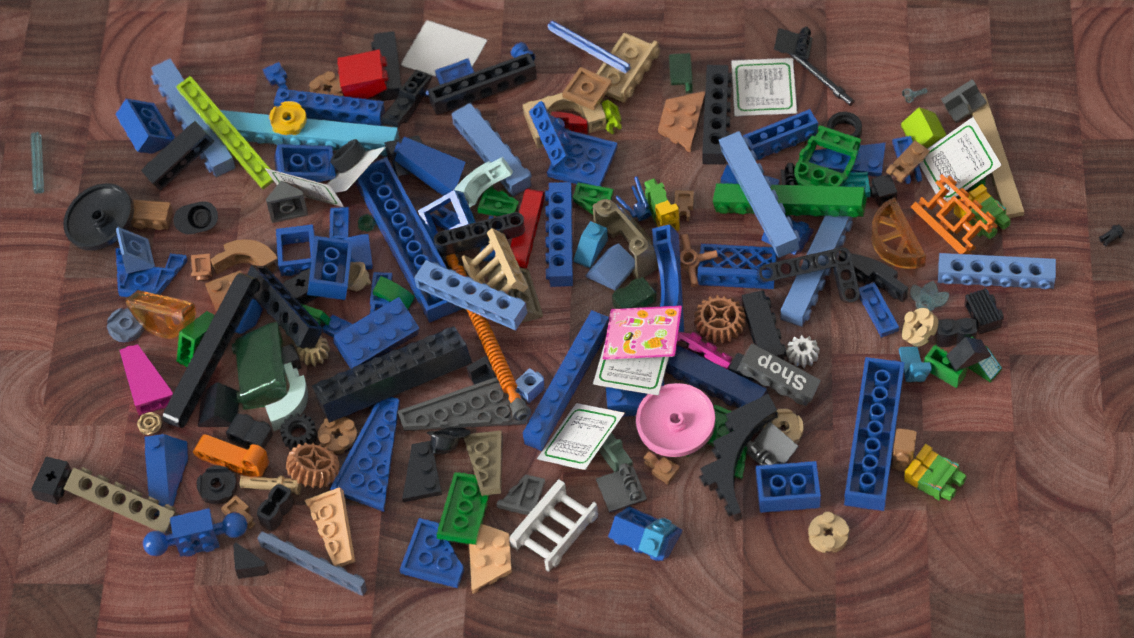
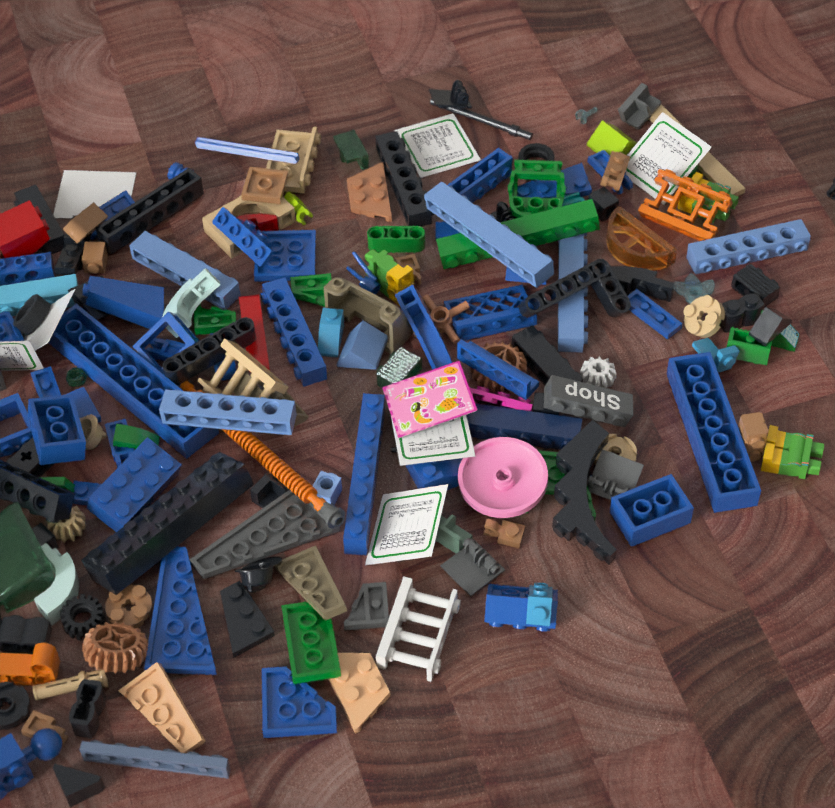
camera: 25 degrees left, 5 degrees down
(420, 82) = (85, 222): none -> medium nougat beam
(420, 115) = (94, 257): none -> medium nougat brick
(684, 172) = (396, 239): none -> green beam
(713, 322) = (496, 369): none -> blue fence
(831, 522) = (712, 534): tan plate -> none

